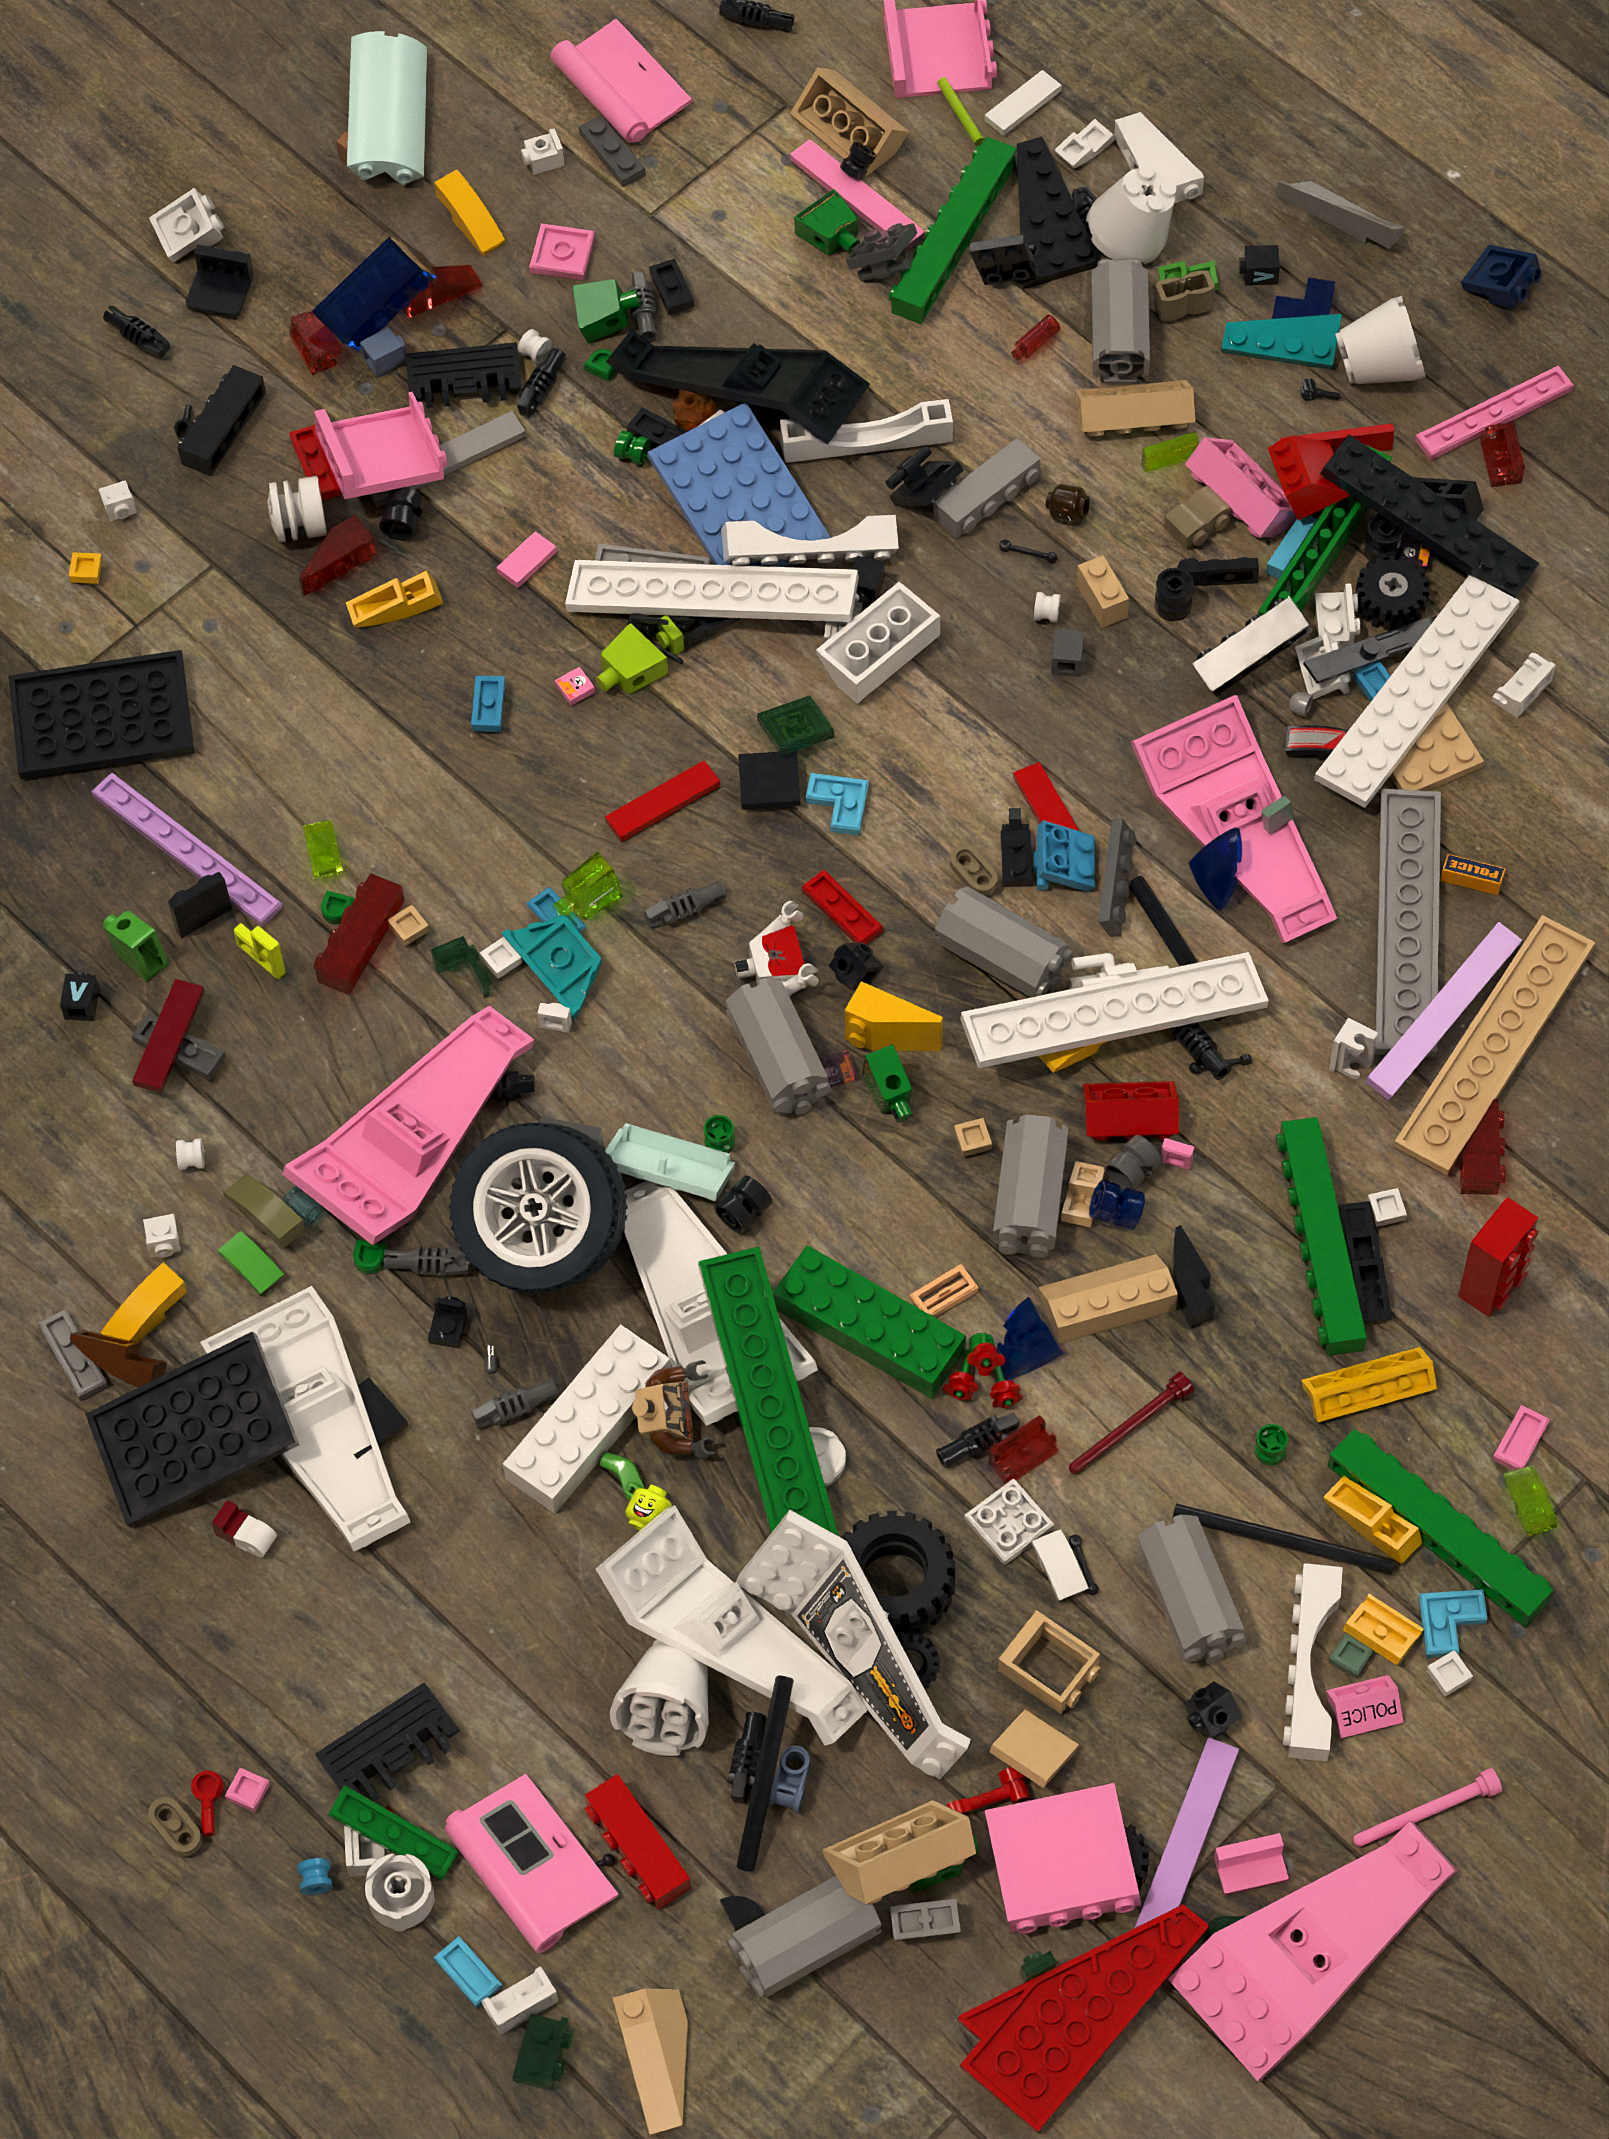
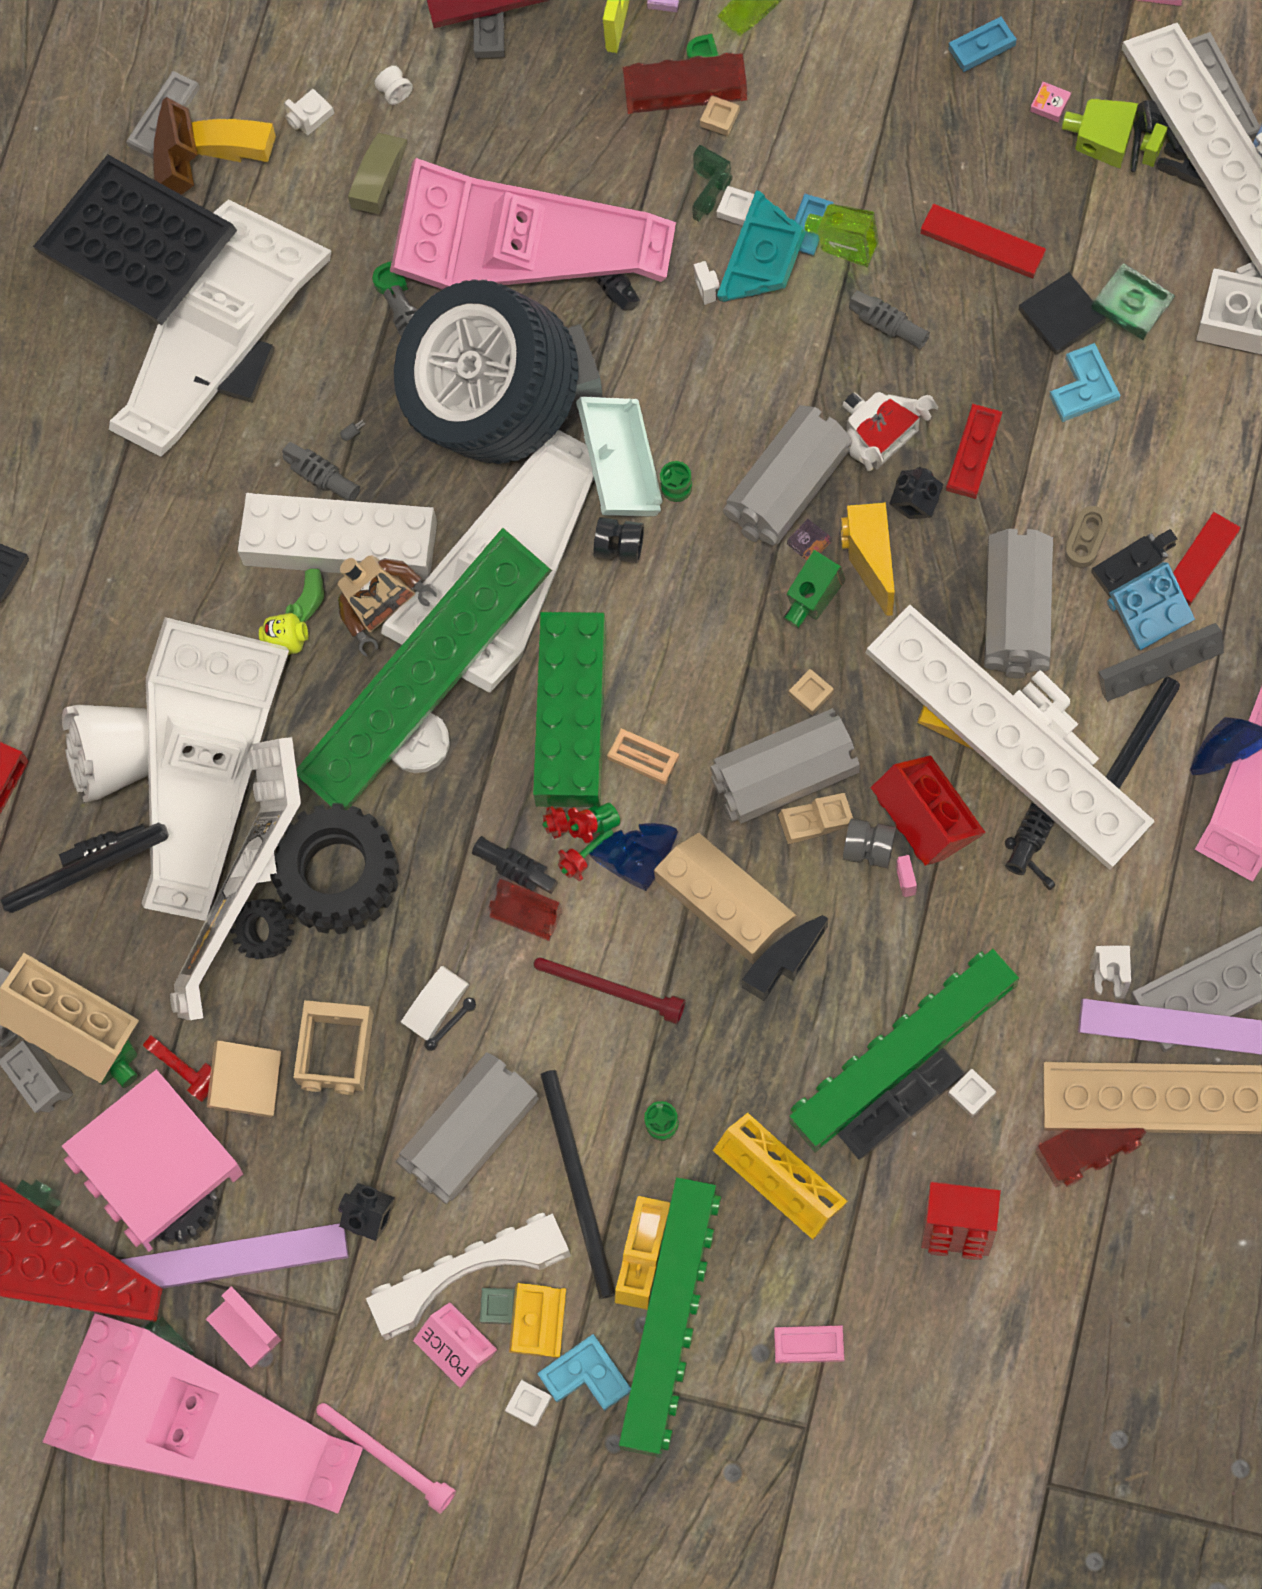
camera: 65 degrees right, 10 degrees up
(243, 1530) = (80, 334): leg -> none
(250, 1262) = (323, 192): bright green slope -> none
(302, 1205) = (397, 196): clear light blue bush -> none
(448, 1322) = (364, 376): black bracket -> none
(789, 1784) = (96, 898): sand blue piece -> none
(1008, 1521) = (454, 937): white tile -> none
(1114, 1204) = (819, 862): clear blue wheel -> none
(1530, 1500) = (747, 1385): clear neon green slope -> none

